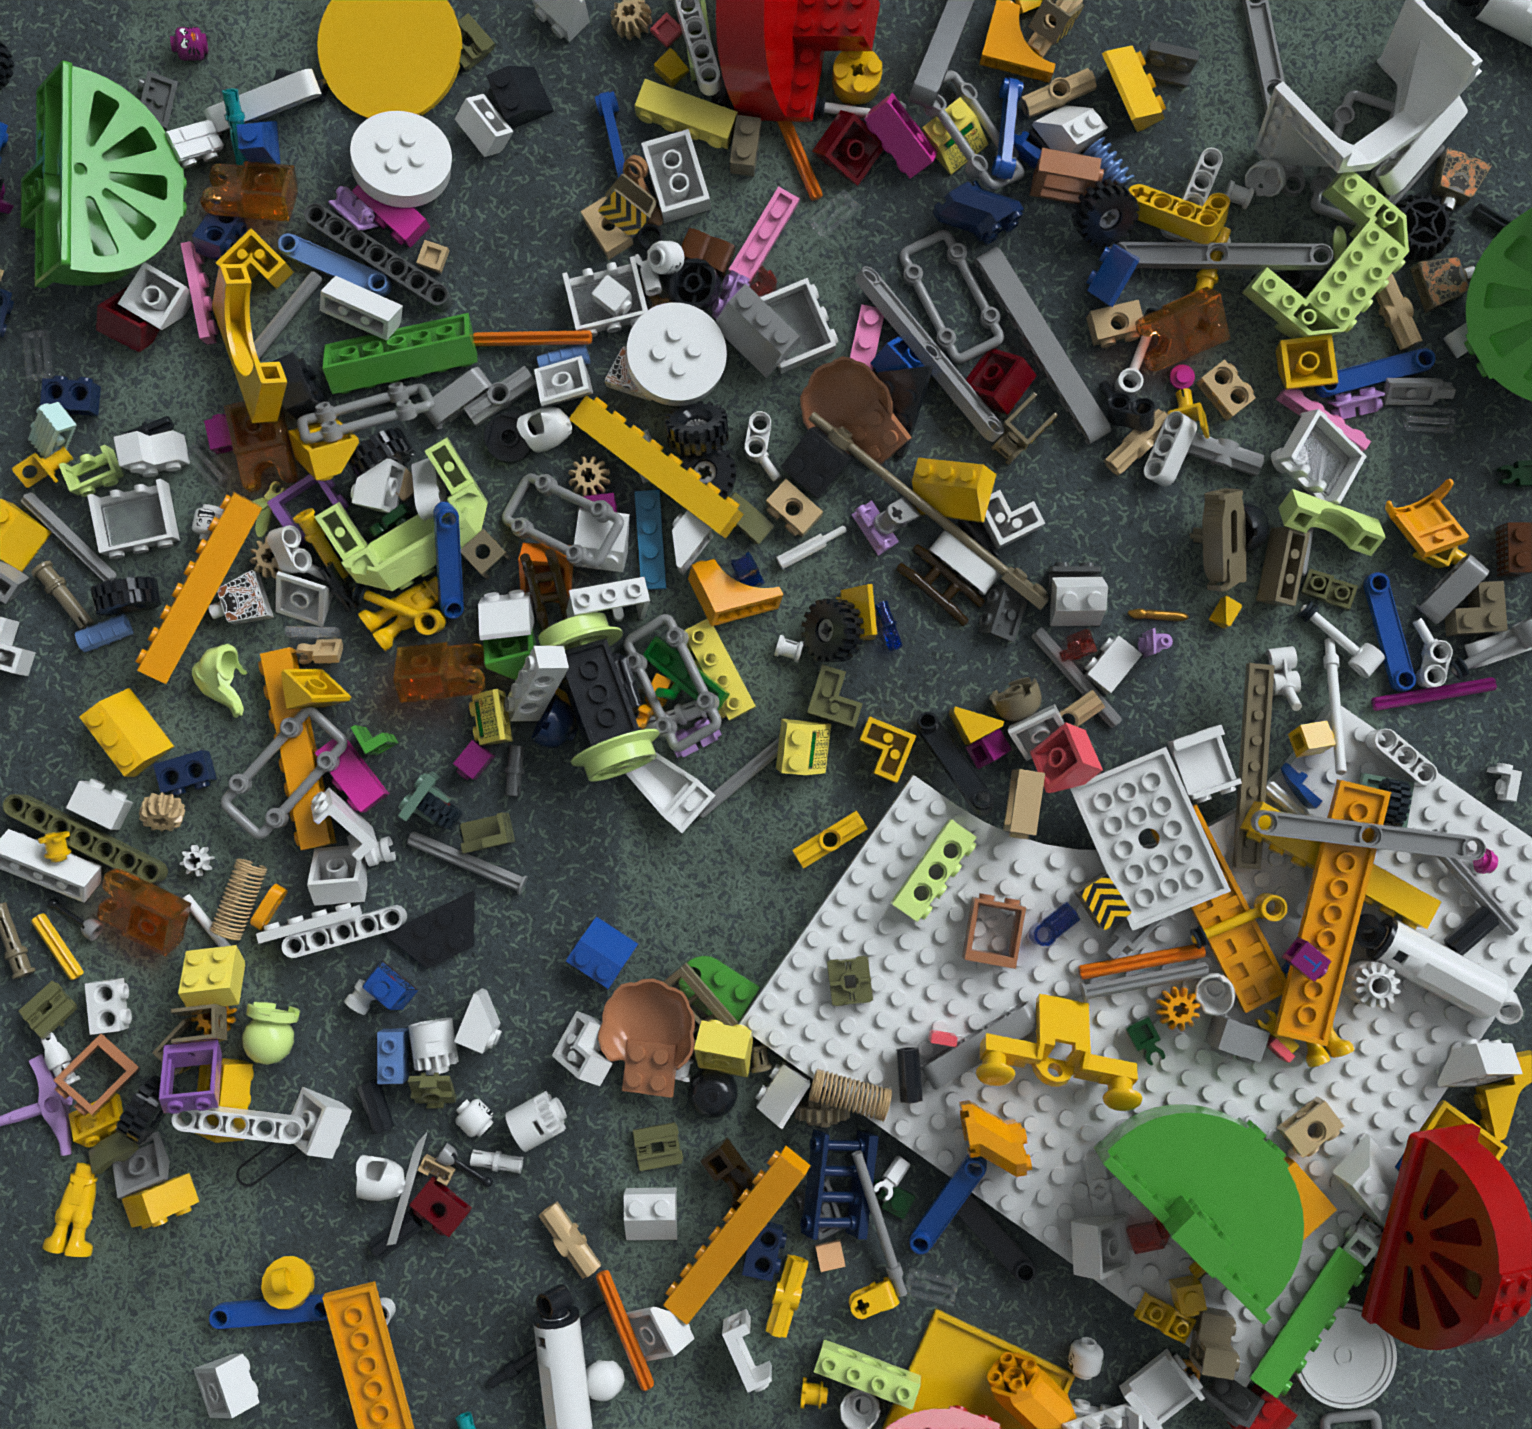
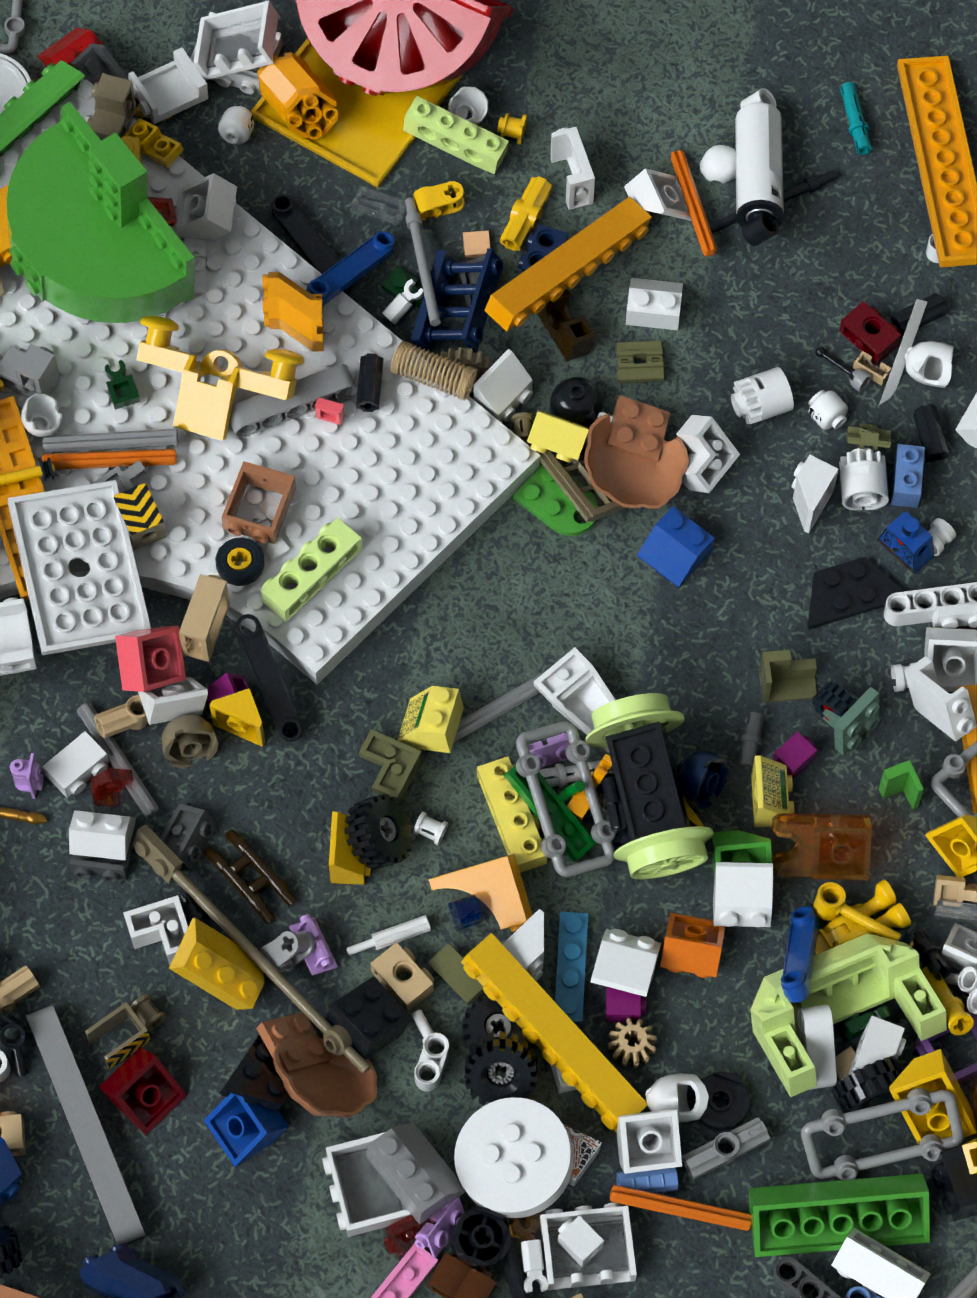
camera: 175 degrees left, 20 degrees down
(355, 779) = (927, 752): dark pink brick -> none
(456, 396) = (771, 1154): light grey beam -> none
(467, 861) = (803, 651): light grey axle -> none
(483, 565) = (748, 972): dark tan piece -> none
(496, 1161) = (808, 368): white pin -> none
(535, 578) = (703, 911): dark brown piece -> none
(536, 683) = (714, 806): white brick -> none
(569, 1240) = (741, 288): tan piece -> none
(575, 553) = (622, 983): light grey bar -> none
(610, 596) = (627, 886): white window -> none
(665, 257) = (511, 1271): white head -> none
(844, 830) = (400, 634): yellow piece -> none
(863, 987) = (403, 477): olive piece -> none
(867, 335) = (290, 1154): bright pink plate -> none
(888, 626) = (316, 838): clear blue axle -> none
(894, 747) = (333, 708): yellow brick -> none
(929, 354) = (229, 1145): light grey beam -> none
(945, 336) = (140, 1166): light grey bar -> none
(965, 562) = (221, 892): white beam -> none
(1010, 881) = (230, 553): none -> black bush
(1055, 923) = (192, 502): clear blue piece -> none
(1177, 1018) = (82, 409): light orange gear -> none

